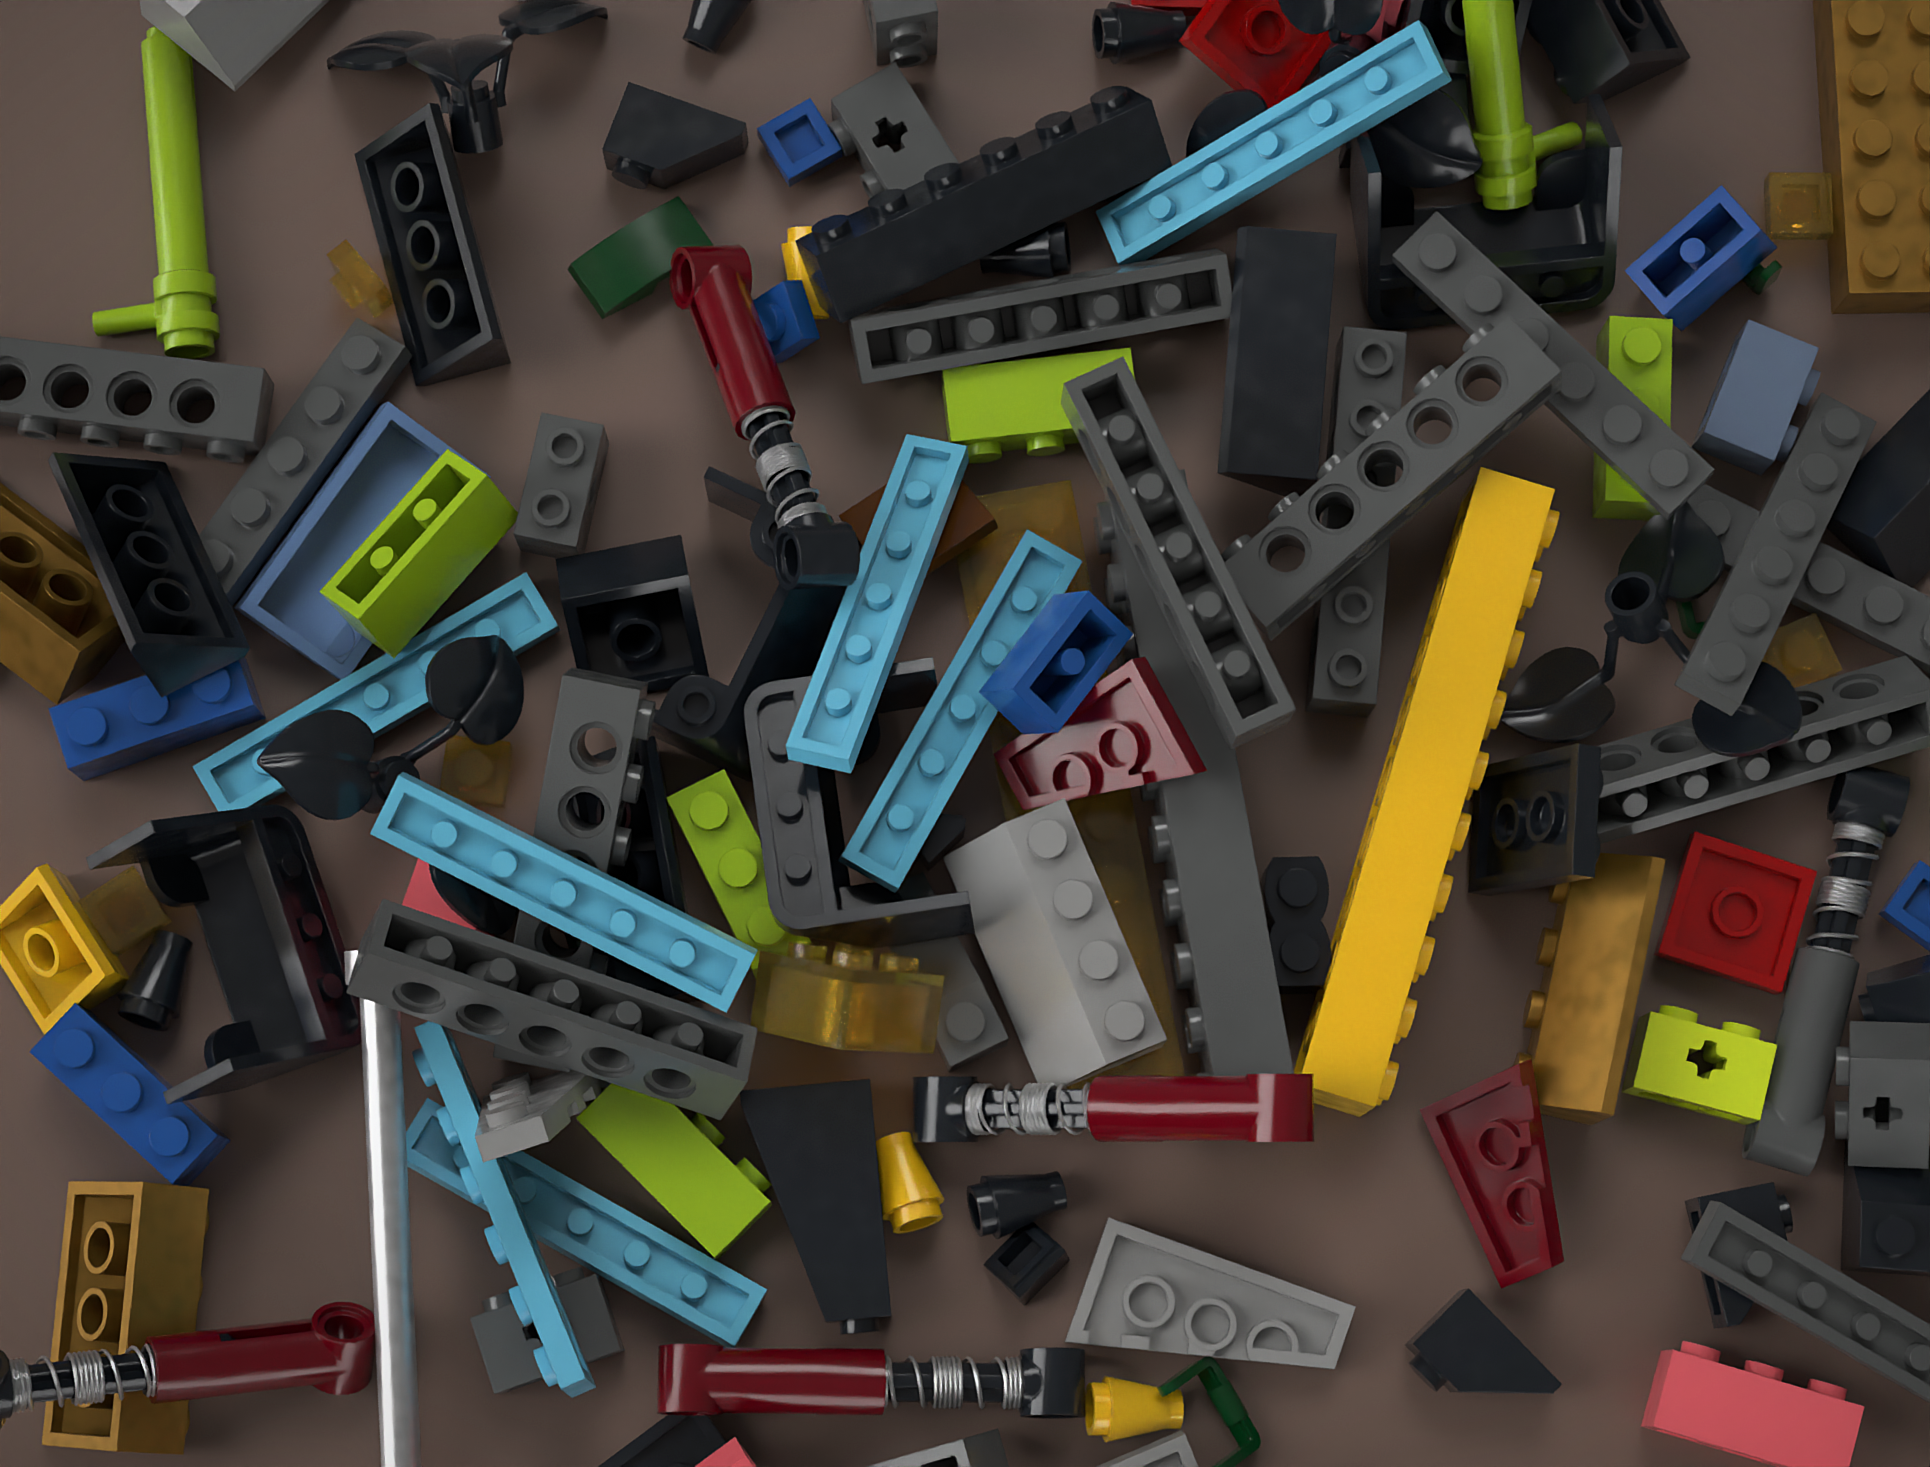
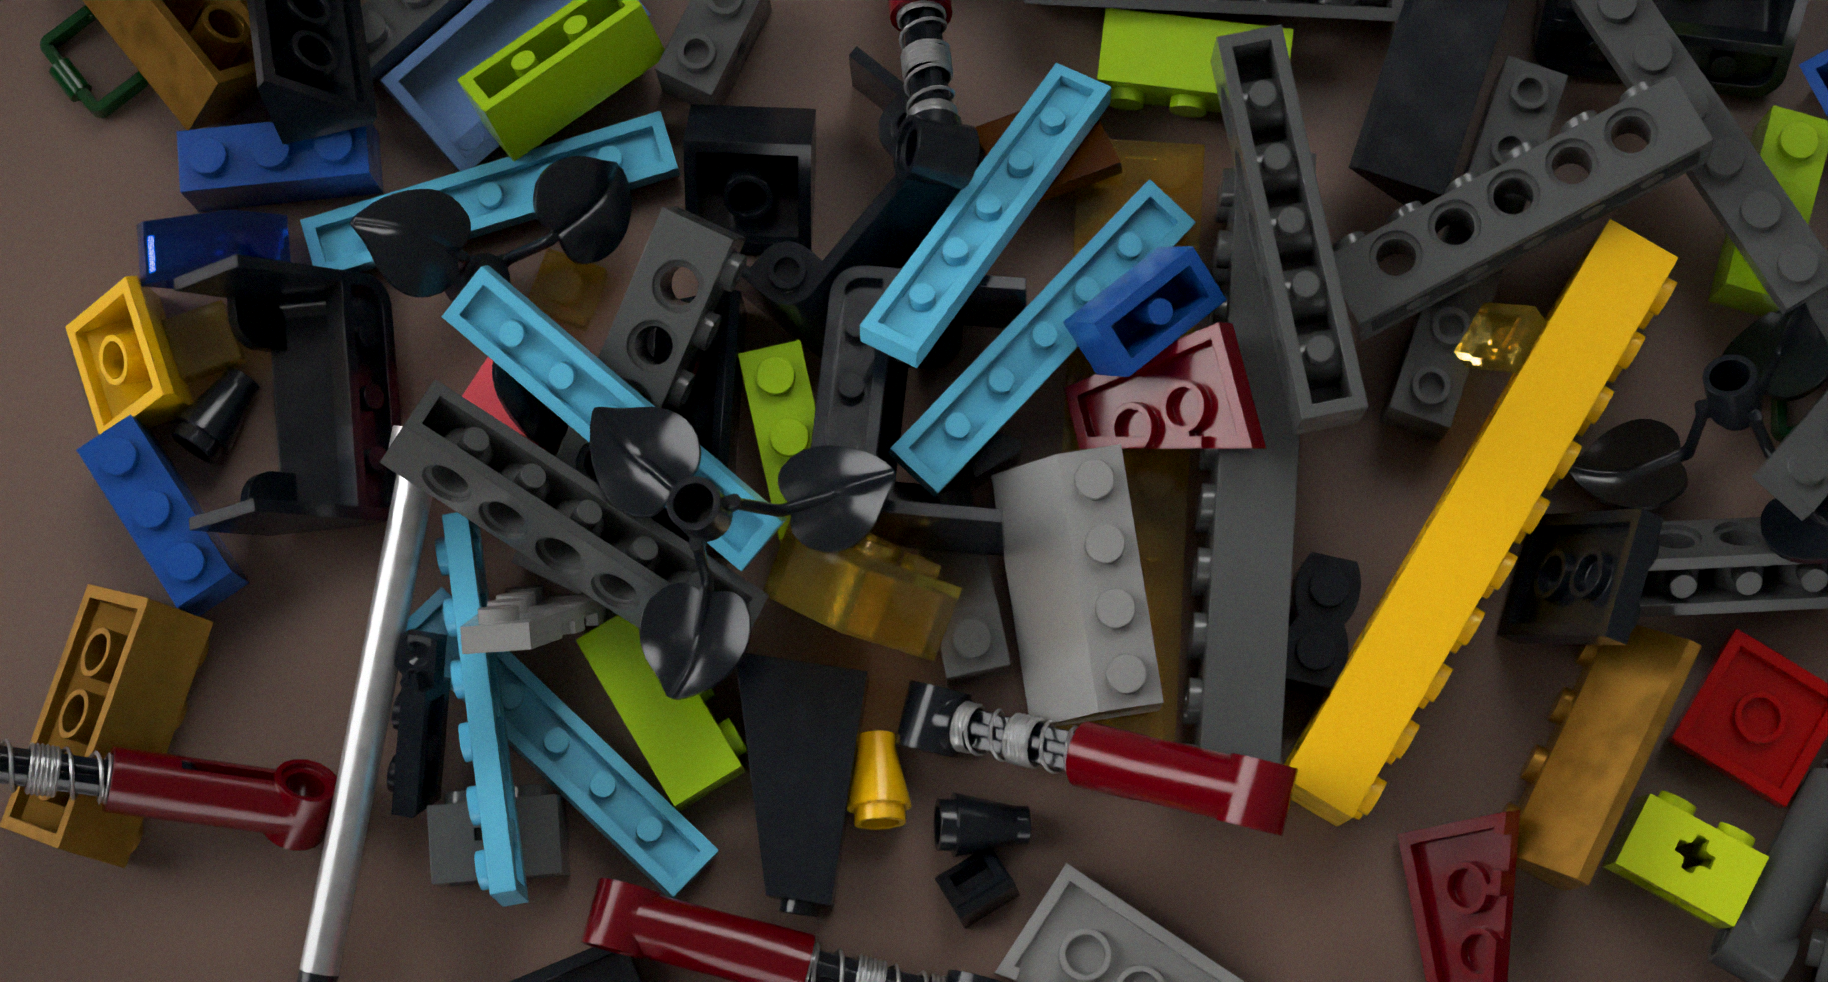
camera: 25 degrees right, 0 degrees up
(106, 812) = (193, 241): none -> clear blue slope
(442, 1234) = (421, 723): none -> black hinge
(605, 928) = (650, 461): none -> black plant
(1403, 606) = (1500, 337): none -> clear yellow plate

